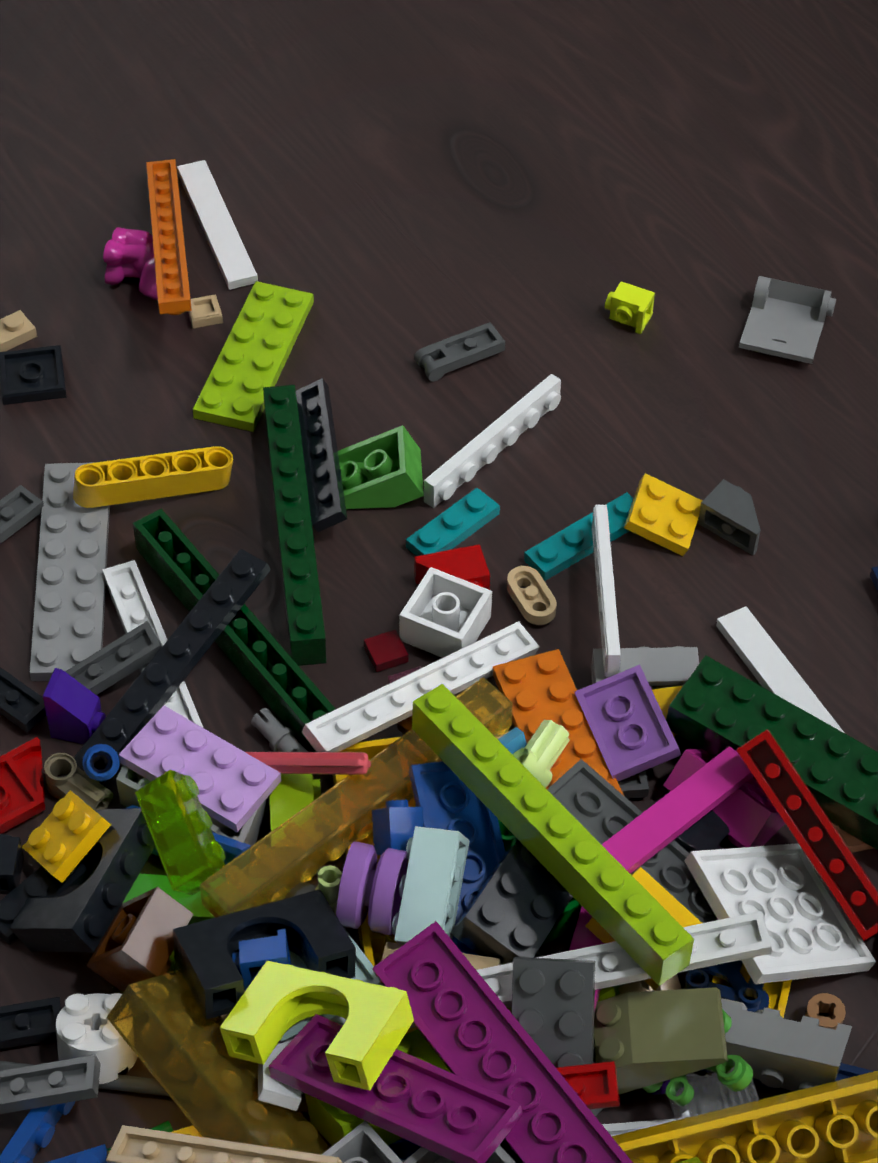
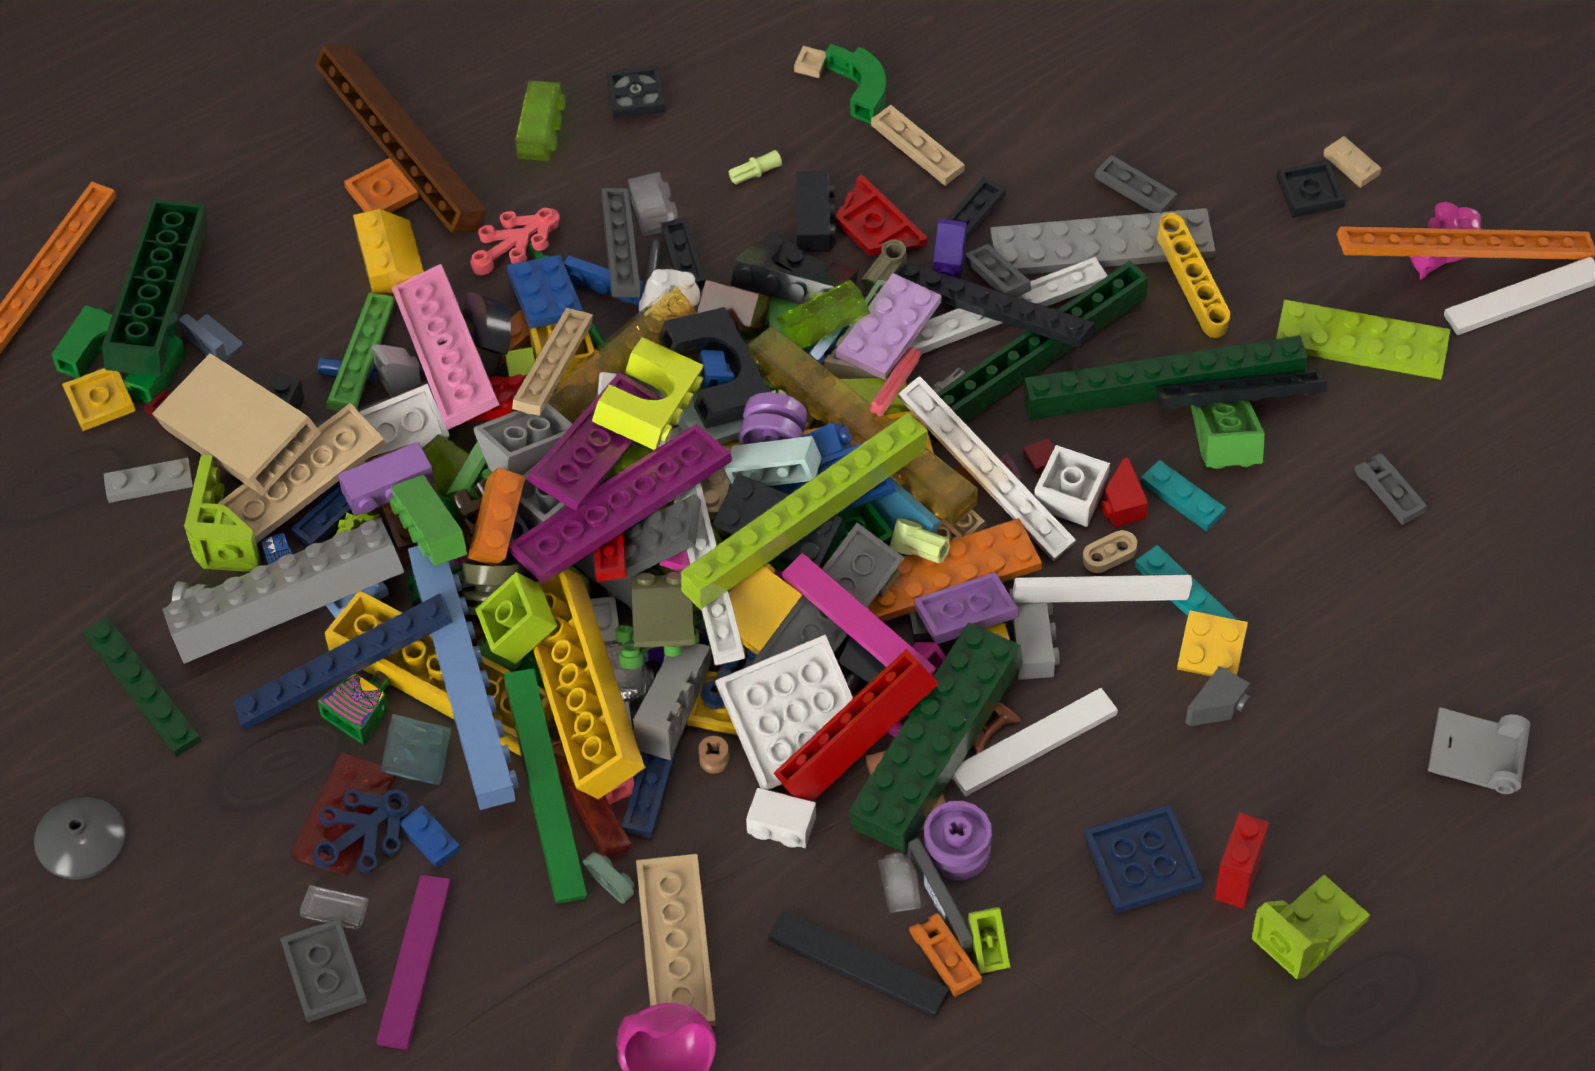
camera: 90 degrees right, 5 degrees up
(66, 836) = (829, 258): yellow plate -> none
(111, 756) = (889, 263): blue brick -> none
(205, 311) = (1409, 298): tan tile -> none
(491, 441) = (1282, 516): white plate -> none
(630, 305) = (1471, 619): neon yellow brick -> none

